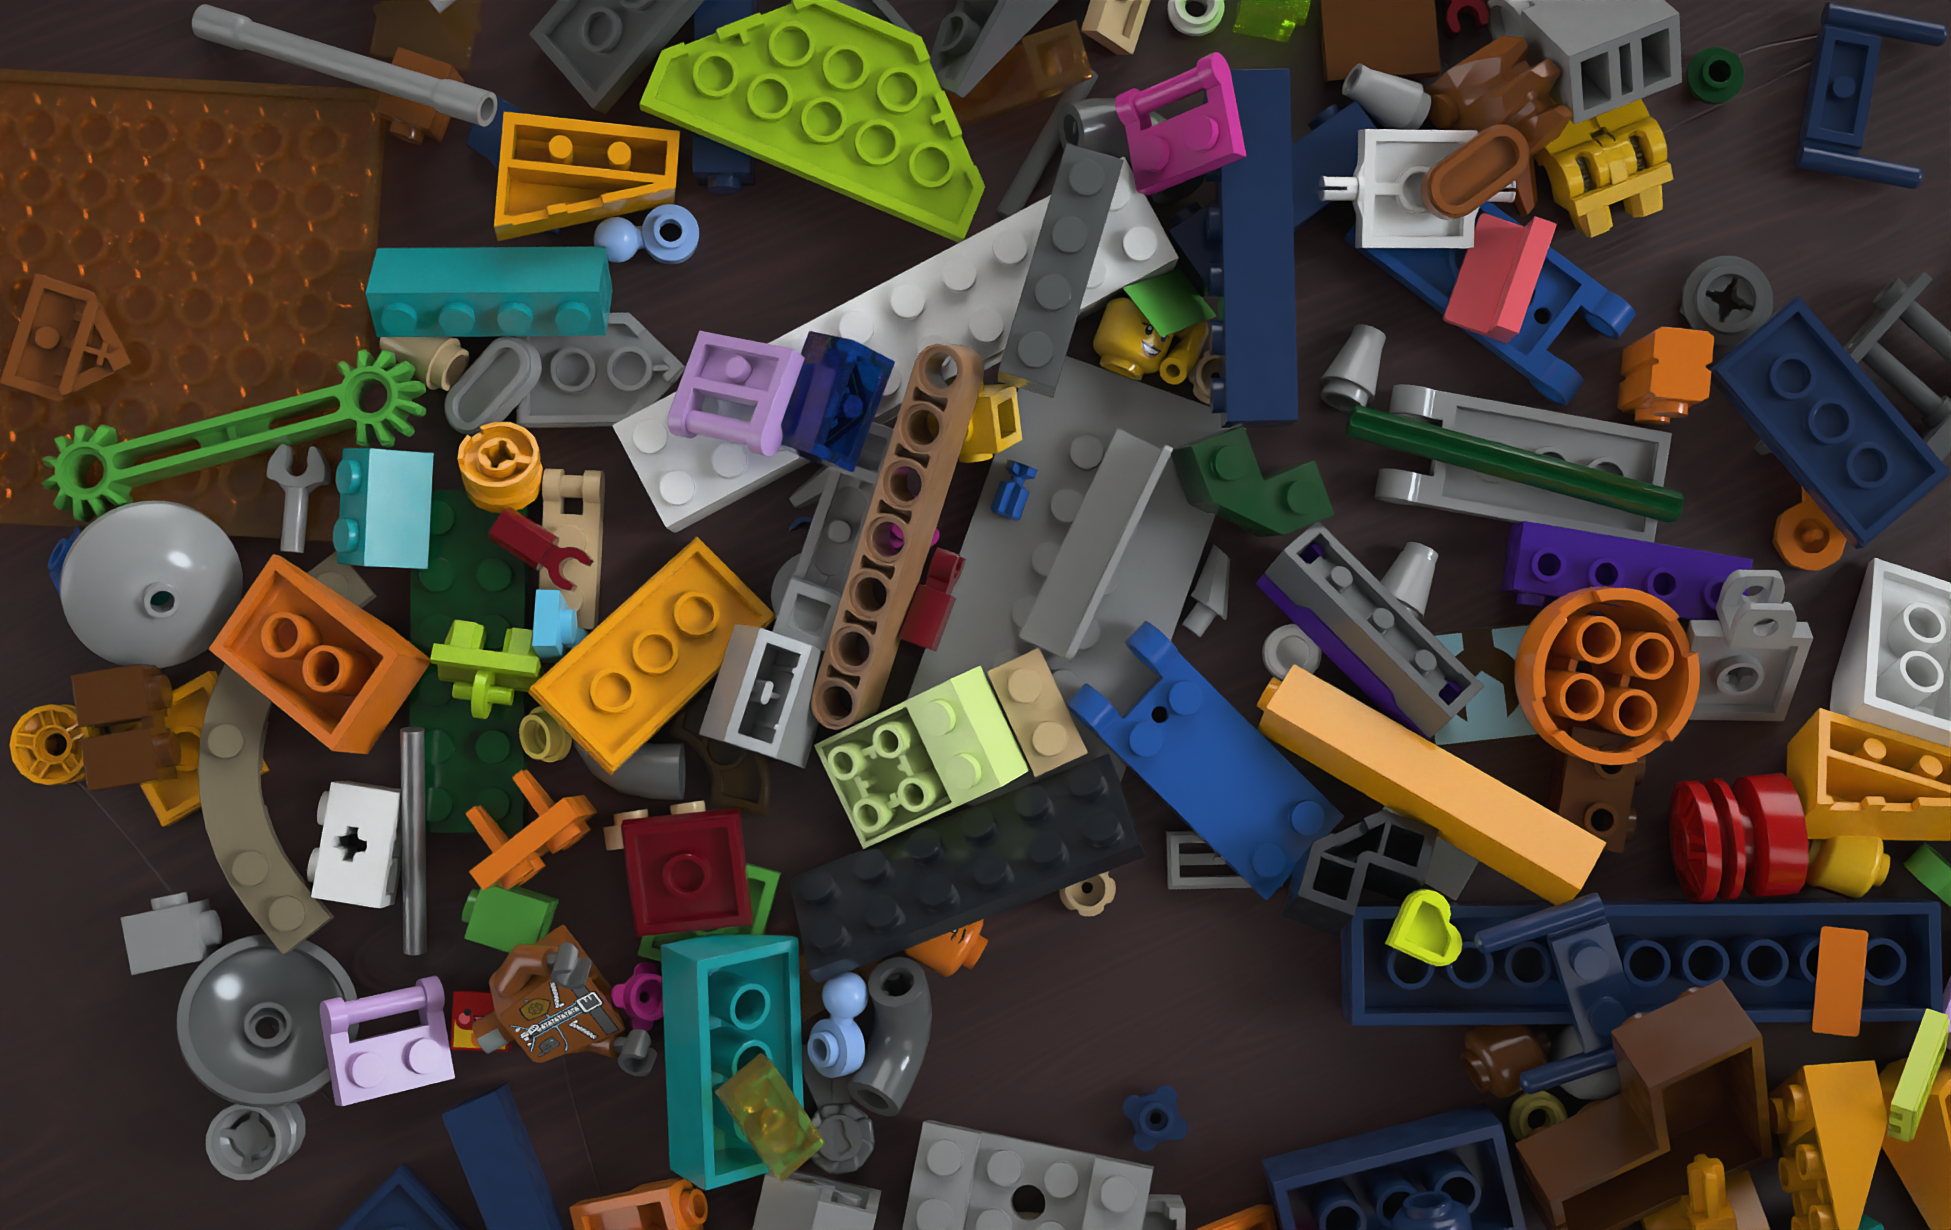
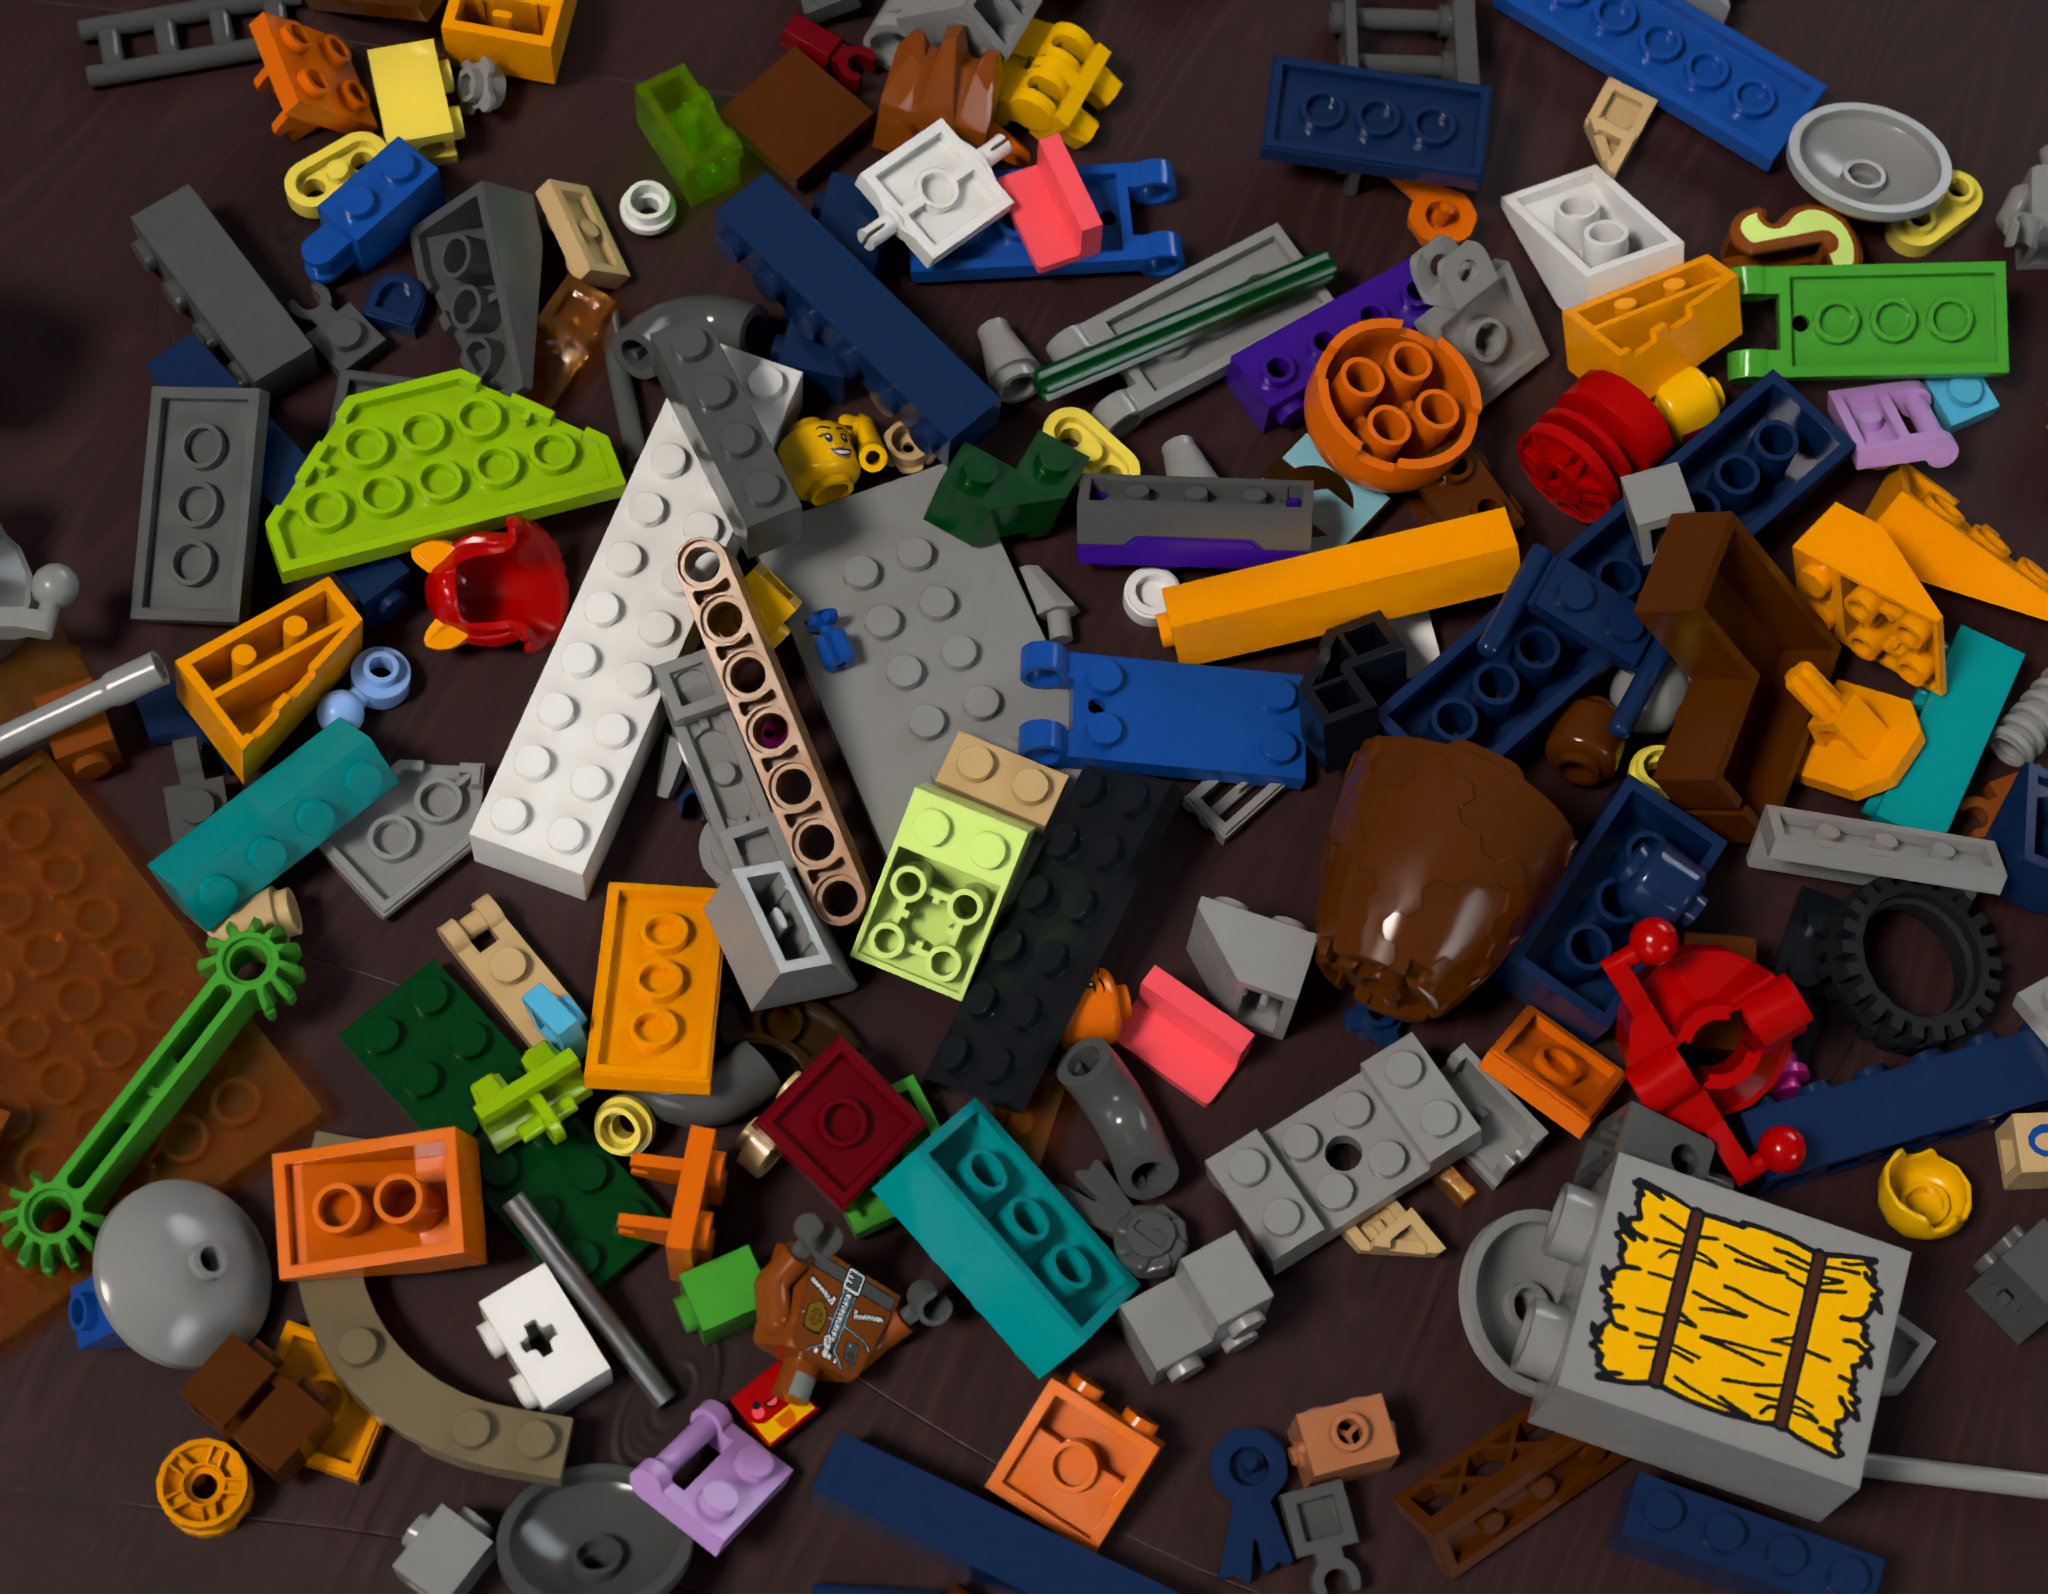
camera: 50 degrees left, 20 degrees down
(297, 492) = (244, 1103): light grey bar -> none
(383, 508) = (333, 1052): brick -> none
(463, 221) = (196, 795): none -> dark grey plate
(492, 385) = (336, 900): light grey tile -> none
(519, 469) = (401, 950): light orange wheel -> none
(535, 546) = (487, 979): dark red bar -> none
(627, 996) = (892, 1262): dark pink plate -> none
(742, 374) = (542, 697): lavender plate -> none
(770, 1117) = (1082, 1242): clear yellow plate -> none
(803, 240) = (495, 588): none -> red hair
(834, 400) = (635, 657): clear blue brick -> none
(837, 1042) = (1054, 1114): light blue plate -> none
(933, 601) = (845, 770): dark red bar -> none
(997, 1012) = (1184, 1037): none -> coral panel
(1084, 1019) = (1250, 962): none -> light grey slope
(1093, 902) = (1169, 876): tan plate -> none
(1094, 545) = (933, 625): light grey panel -> none
(1169, 302) = (824, 414): bright green sticker -> none
(1188, 142) = (737, 278): dark pink plate -> none
(1264, 1081) = (1432, 872): none -> reddish brown piece
(1352, 503) = (1094, 440): none -> light yellow plate
(1388, 98) = (849, 153): light grey cone -> none
(1425, 930) = (1439, 681): neon yellow tile -> none
(1475, 172) = (967, 144): dark orange tile -> none
(1665, 374) = (1232, 180): orange brick -> none
(1723, 948) = (1650, 501): none -> light grey brick
(1748, 287) = (1236, 93): dark grey gear -> none
(1840, 981) = (1760, 476): orange sticker -> none
(1918, 1075) = (1875, 485): neon yellow tile -> none

